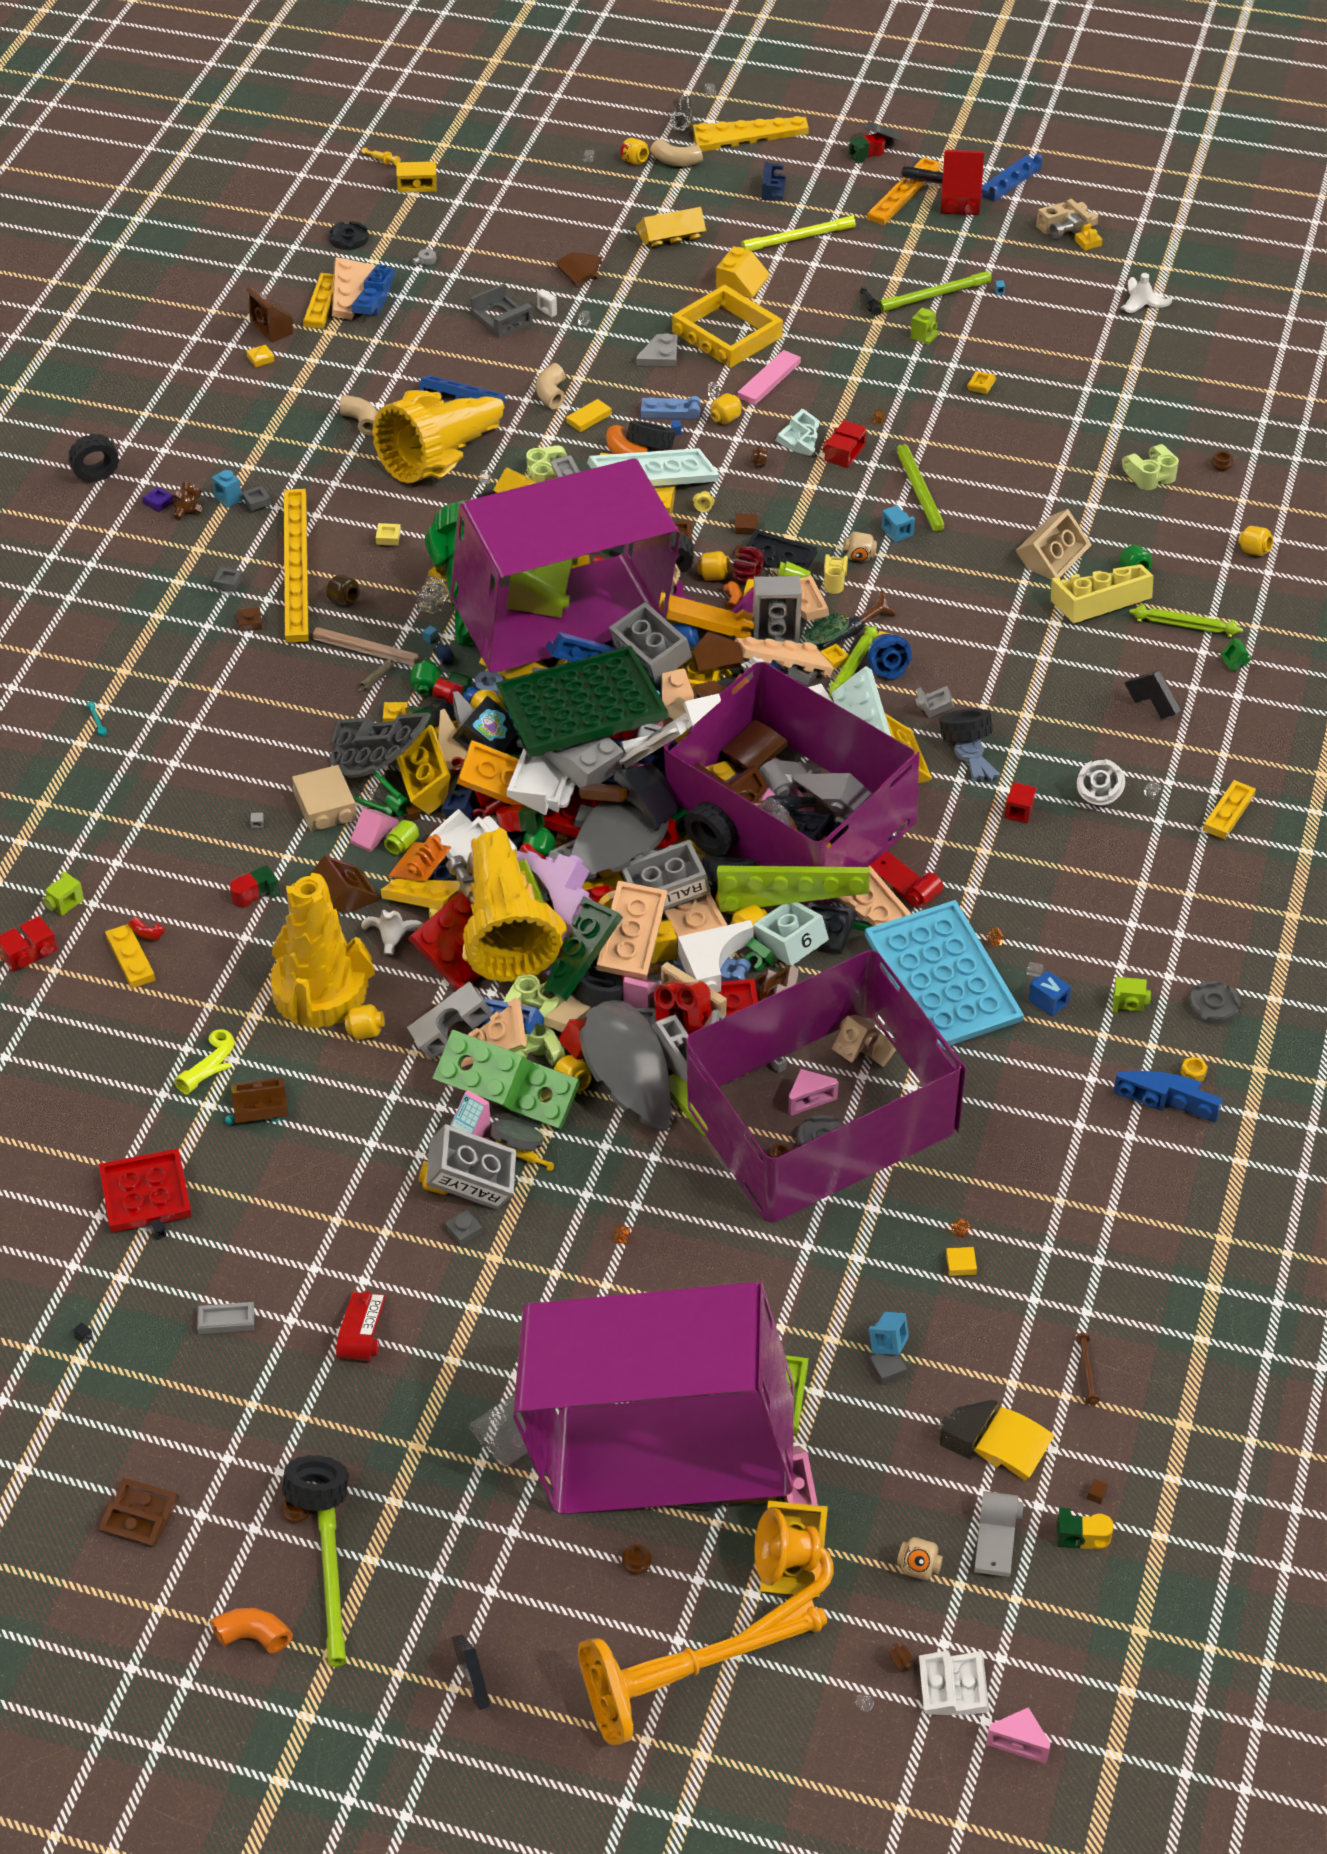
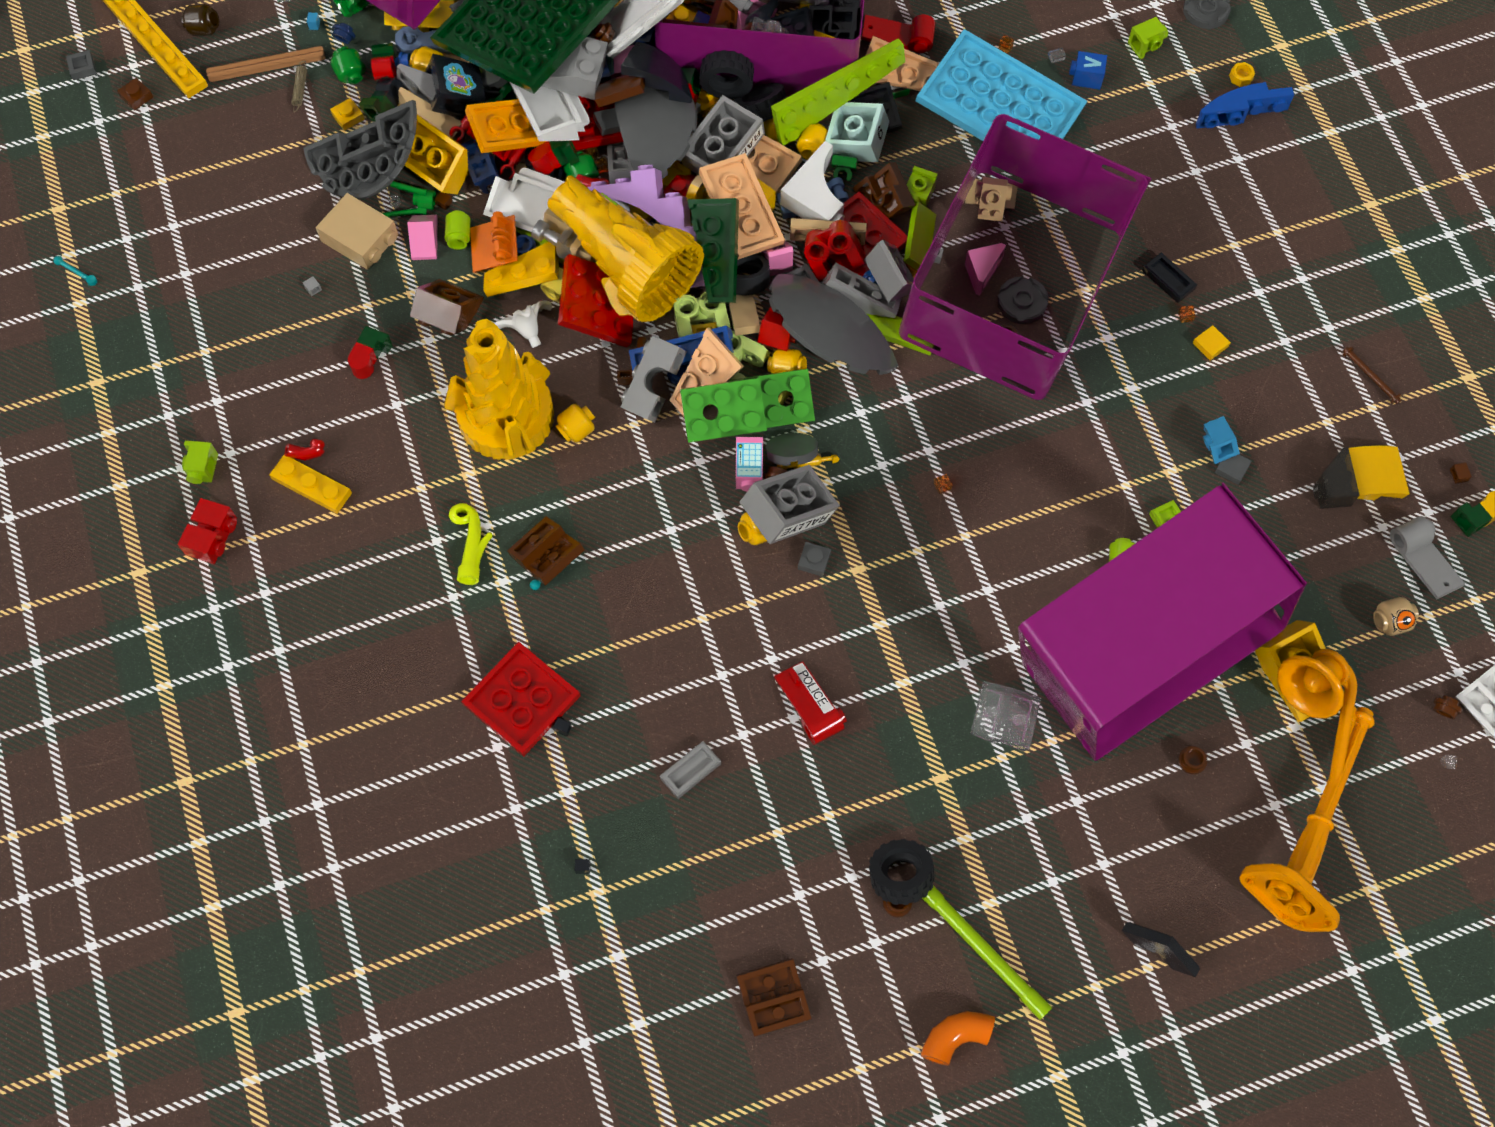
camera: 35 degrees left, 20 degrees up
(628, 743) = (604, 32): none -> reddish brown plate
(972, 1192) = (1169, 277): none -> black tile

